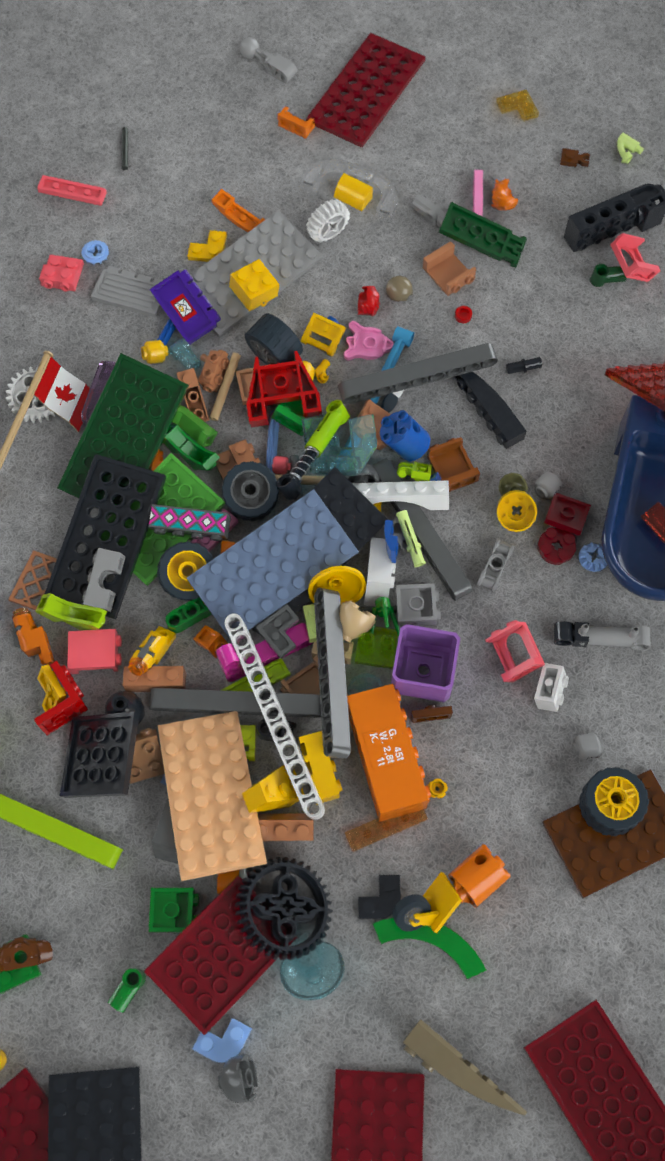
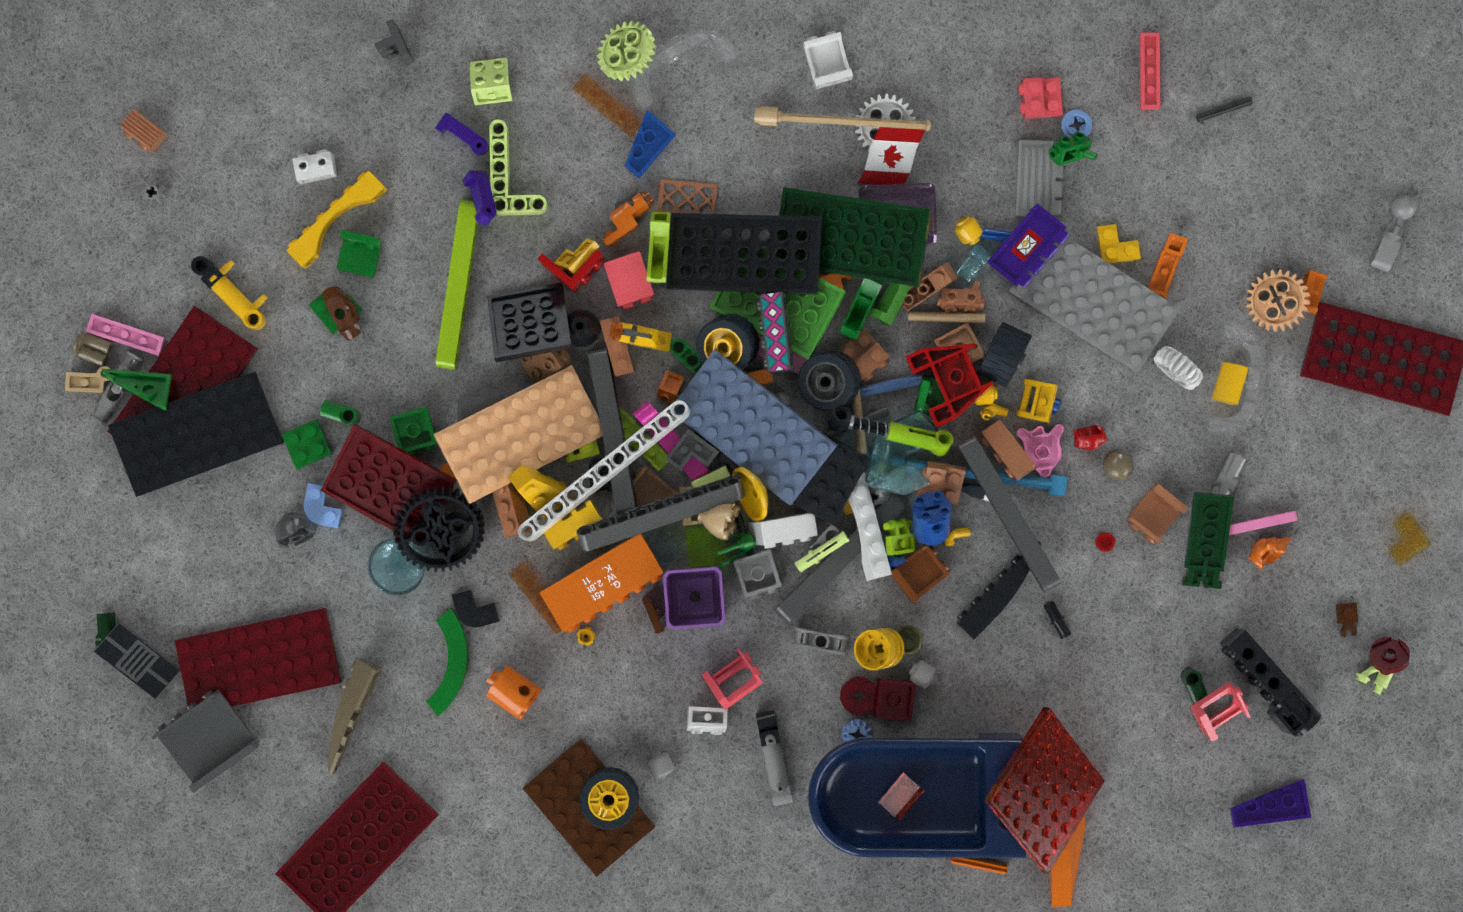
camera: 75 degrees right, 20 degrees up
(105, 563) = (680, 267): light grey arch -> none
(114, 254) = (1071, 149): none -> green brick
(149, 1039) = (307, 444): none -> green plate
(254, 285) = (1070, 312): yellow brick -> none
(281, 465) = (872, 400): coral piece -> none
(293, 127) = (1294, 292): none -> light nougat gear
(361, 362) = (1007, 451): none -> nougat brick
(391, 541) = (807, 535): blue slope -> none
(424, 422) = (957, 533): none -> yellow arm
(428, 910) = (474, 656): yellow plate -> none
(620, 135) = (1389, 665): none -> dark red plate

